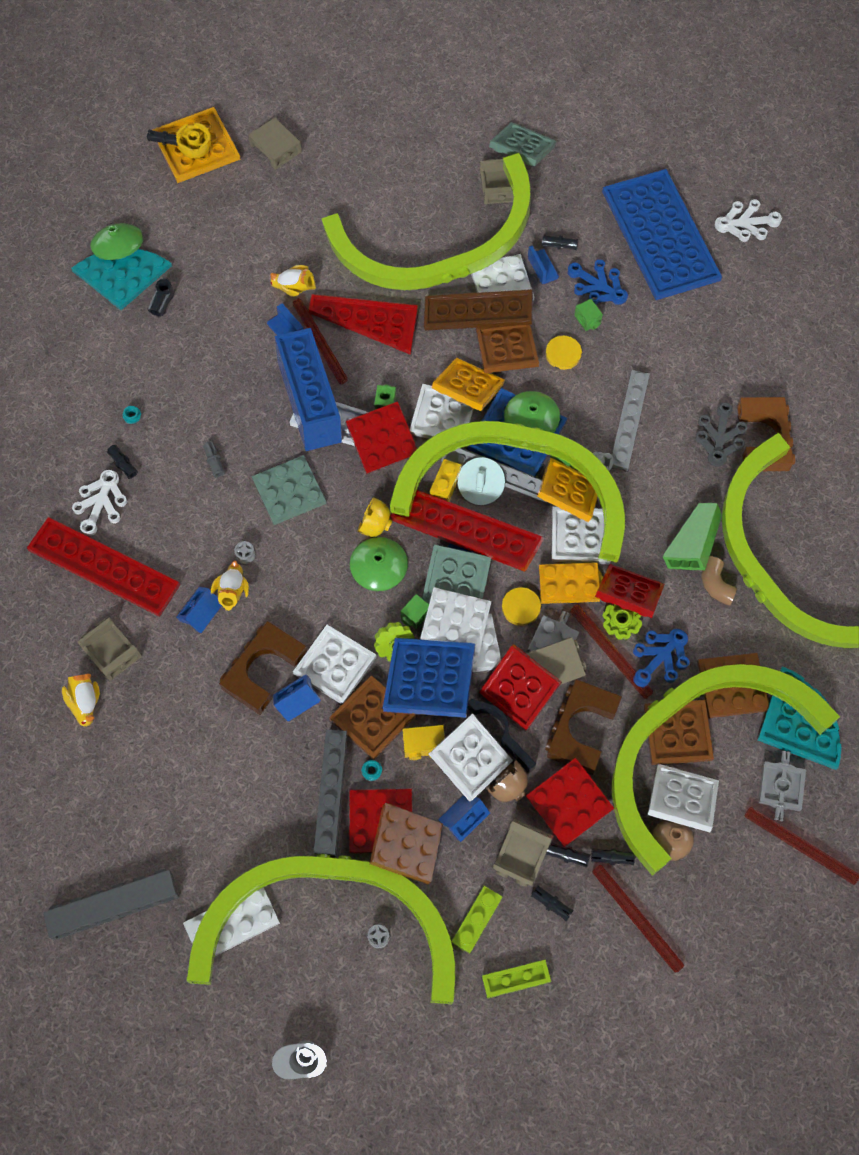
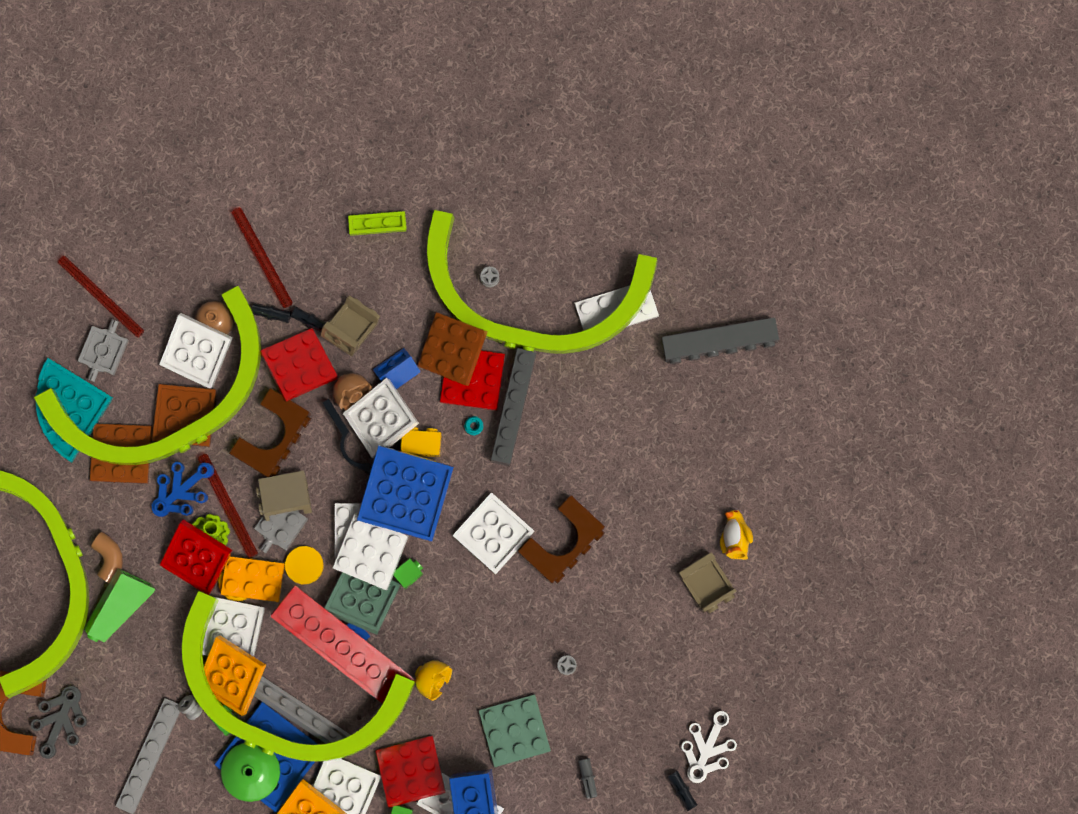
camera: 170 degrees left, 15 degrees up
(103, 566) = (709, 673): red plate -> none
(200, 609) = (617, 612): blue panel -> none
(230, 586) = (583, 628): animal -> none
(295, 698) = (535, 504): blue panel -> none
(299, 1060) = (569, 185): light grey piece -> none
(366, 721) = (472, 475): dark orange plate -> none
(378, 574) = (450, 636): bright green dish -> none
(386, 636) = (434, 549): lime plant -> none
(446, 480) = (353, 709): yellow brick -> none
(477, 919) = (401, 278): lime plate -> none
(481, 481) = (317, 705): light aqua shield -> none
(520, 687) = (322, 477): red plate -> none
(552, 903) = (333, 281): black pin -> none

